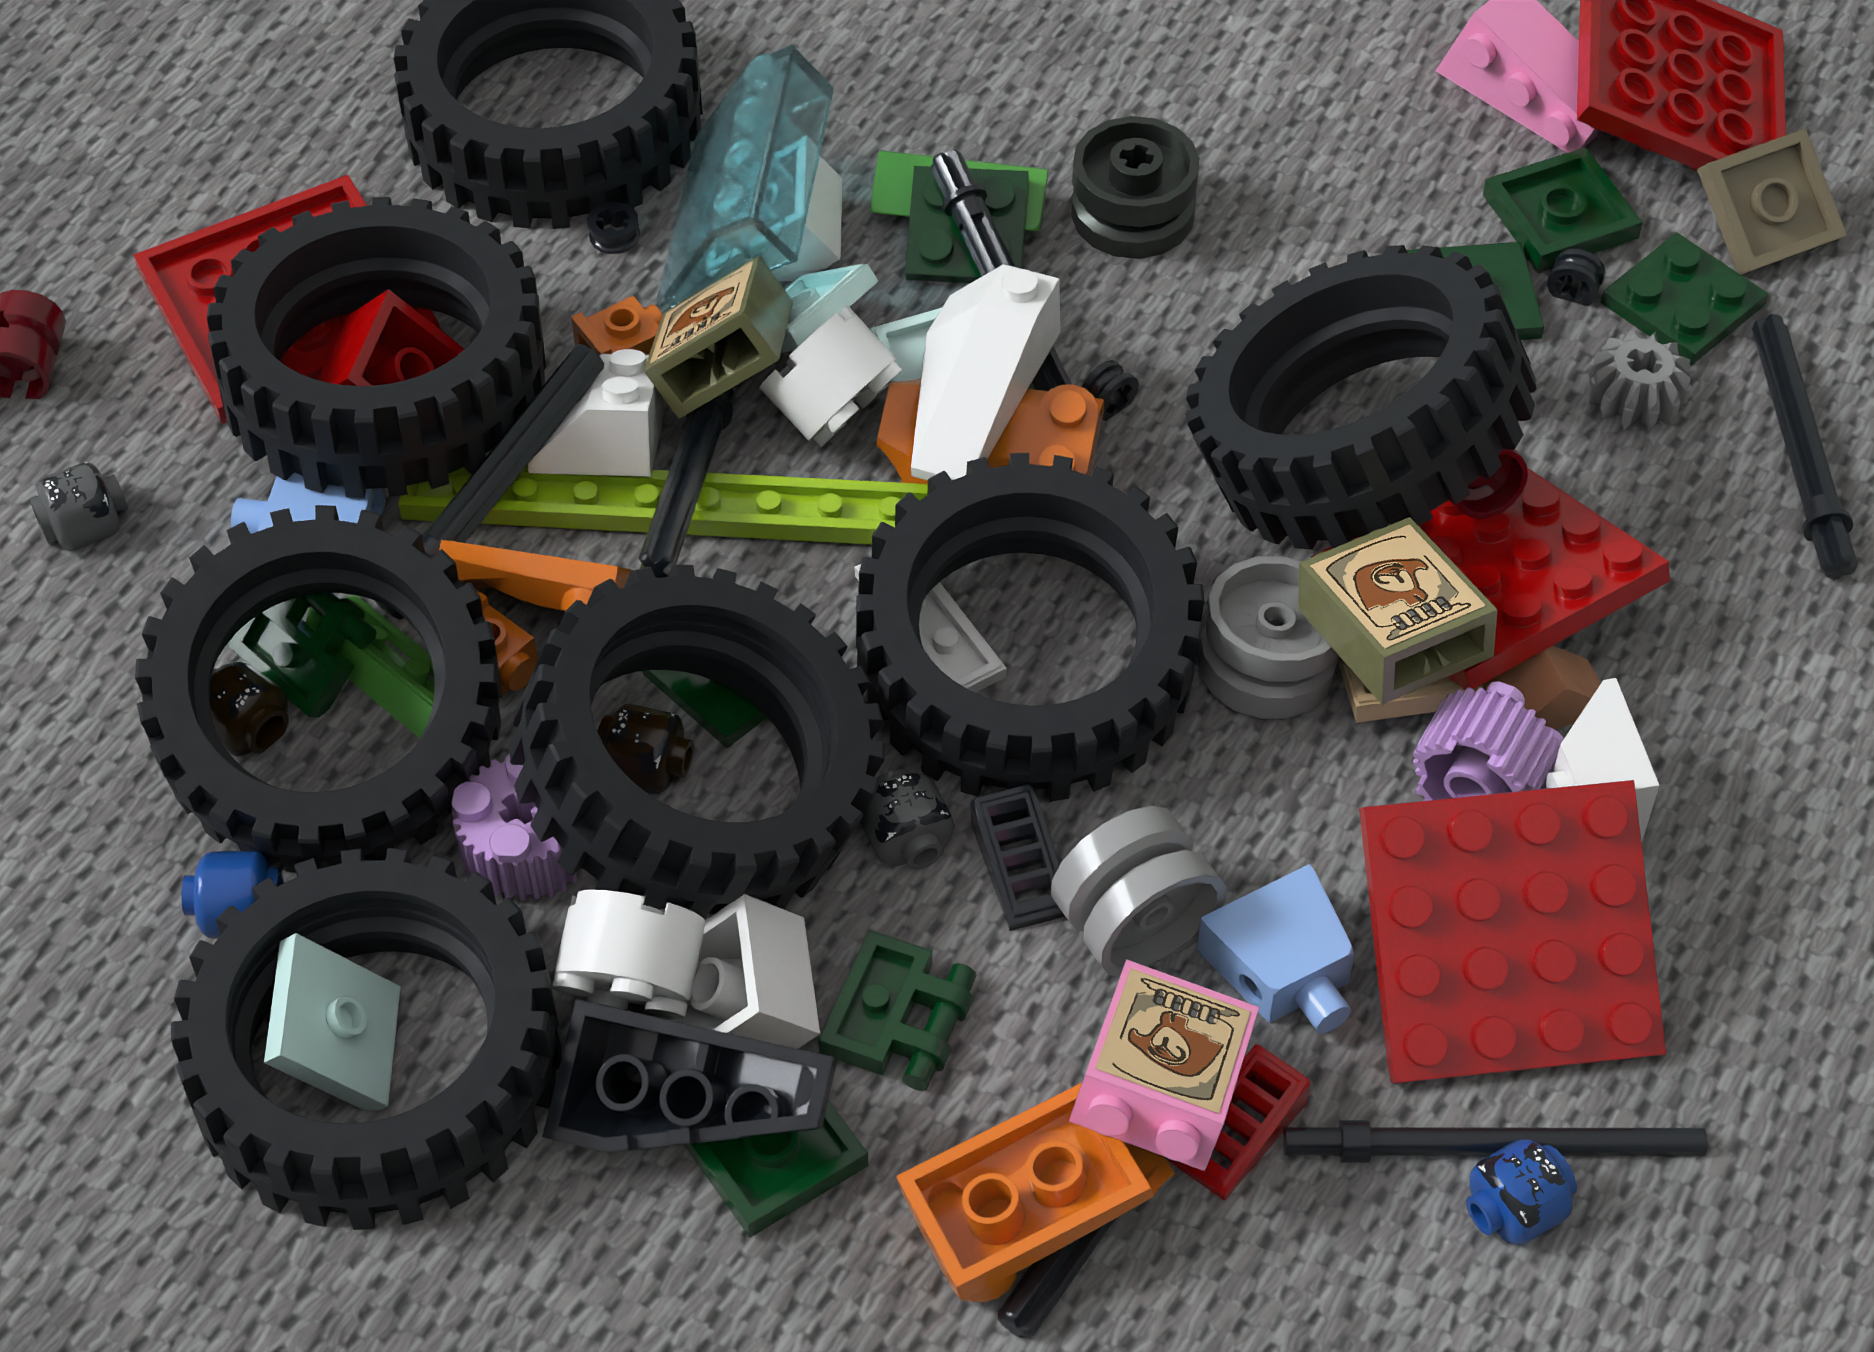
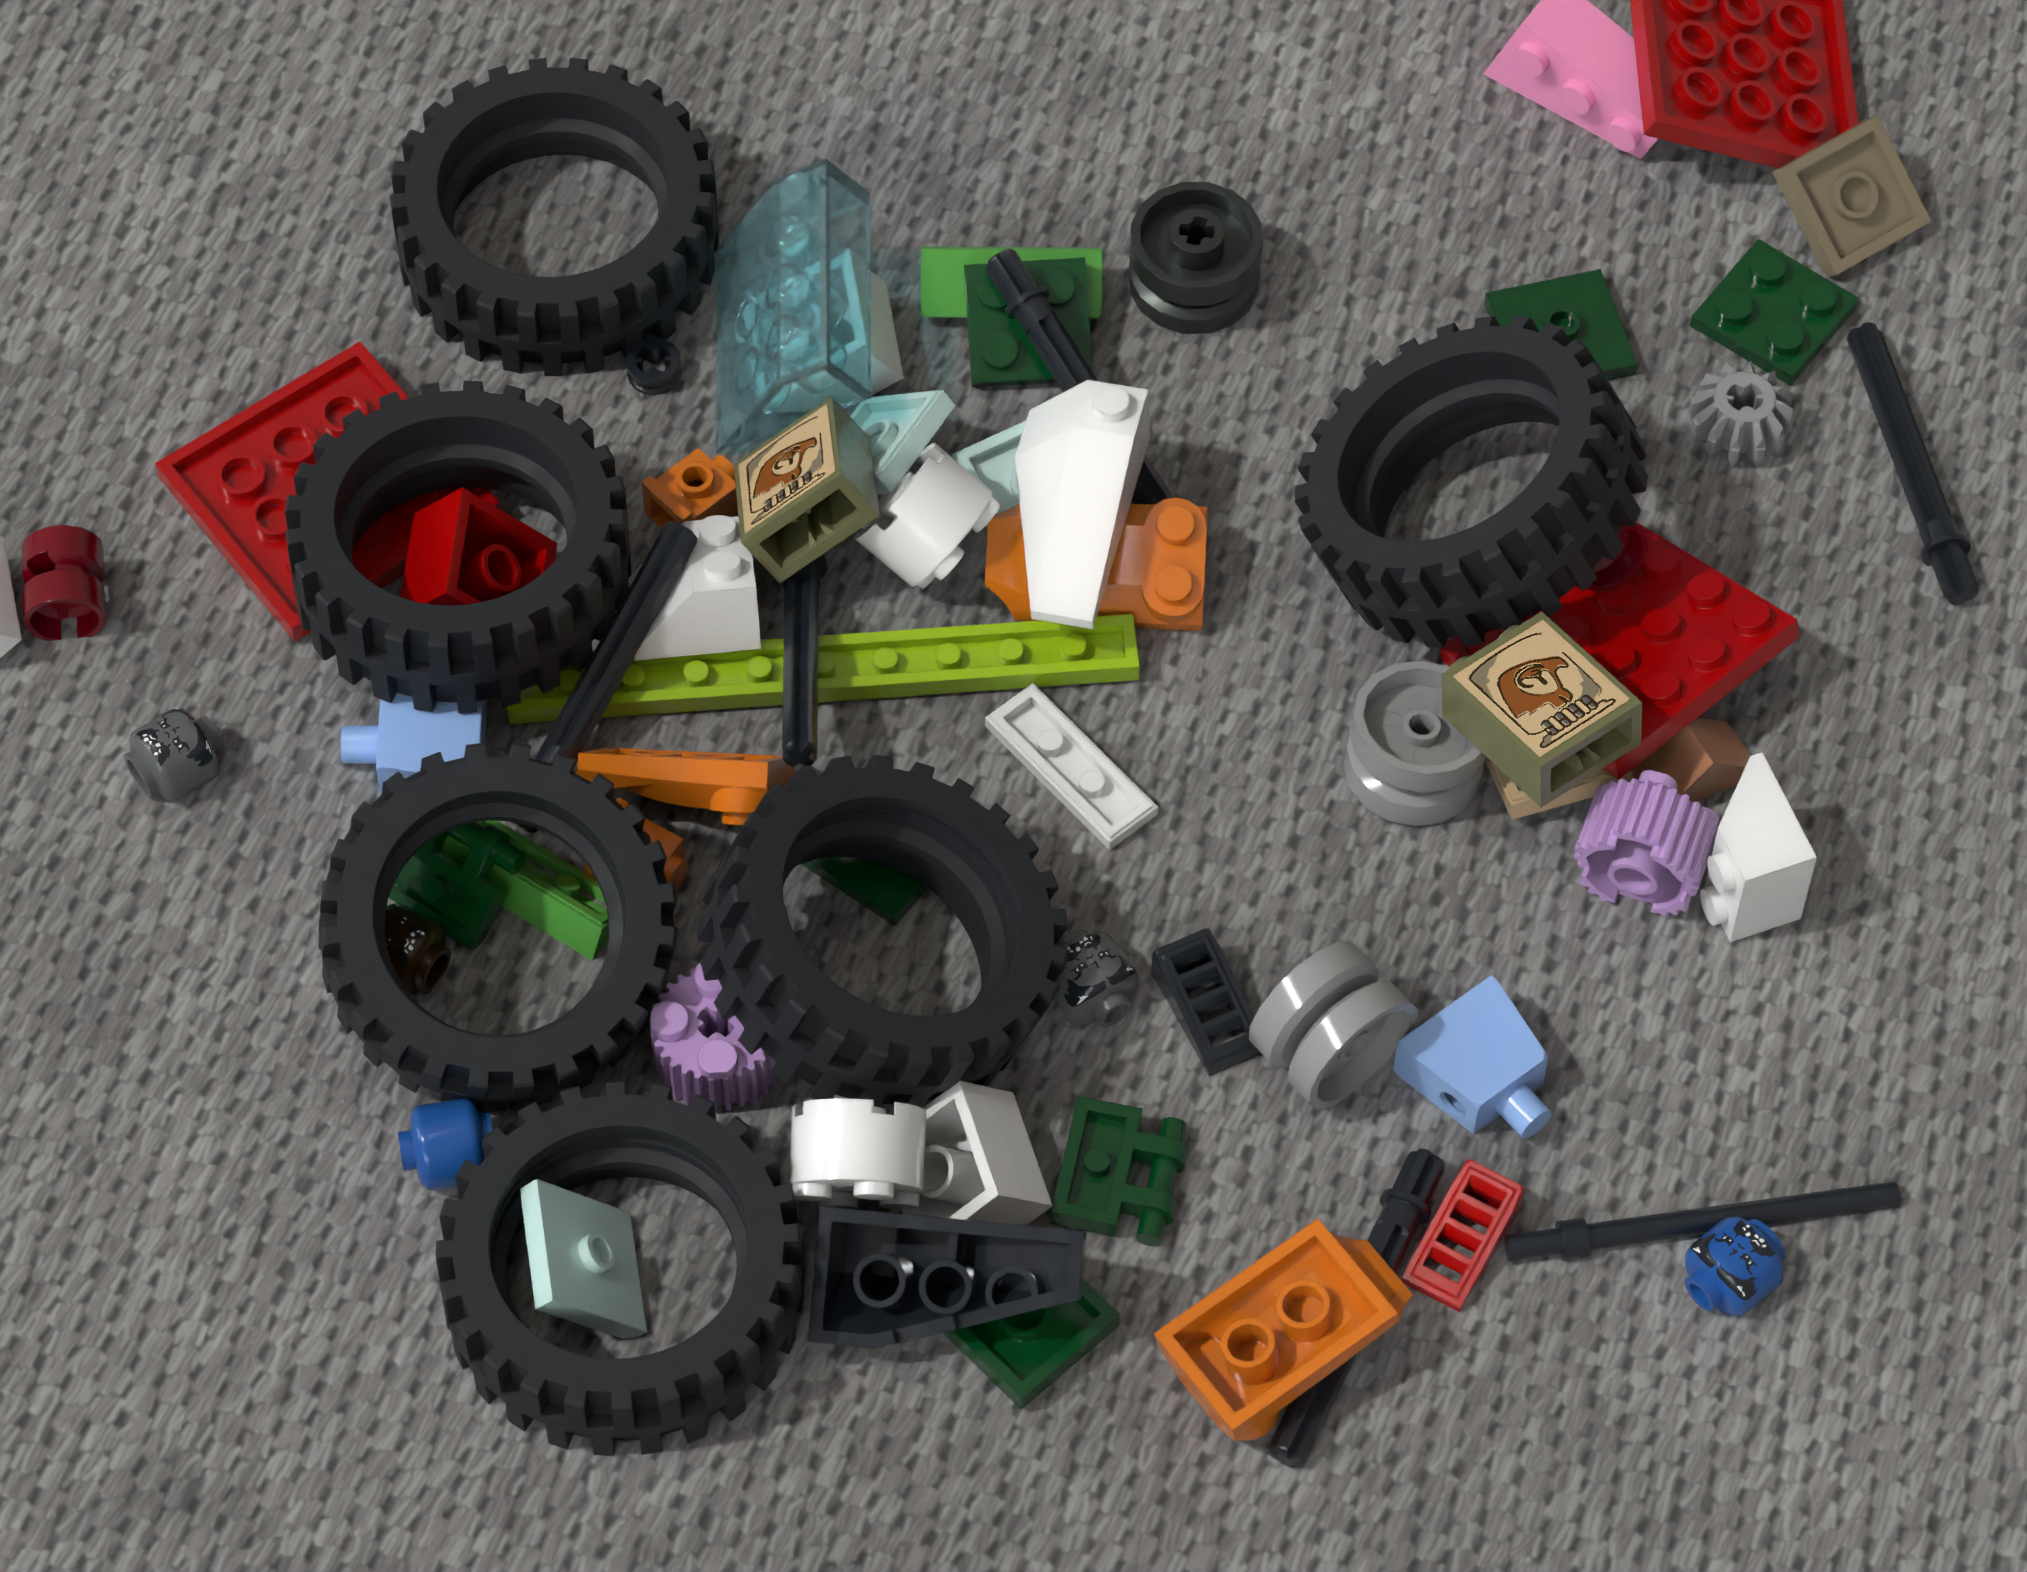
camera: 10 degrees left, 5 degrees up
(647, 745) = (826, 933): dark brown head -> none
(1044, 514) = (1203, 648): black tyre -> none
(1112, 386) = (1209, 488): black bush -> none
(1165, 1065) = (1391, 1193): brick -> none
(1512, 931) = (1694, 1017): red plate -> none
(1562, 207) = (1637, 225): dark green plate -> none
(1576, 276) = (1663, 303): black bush -> none

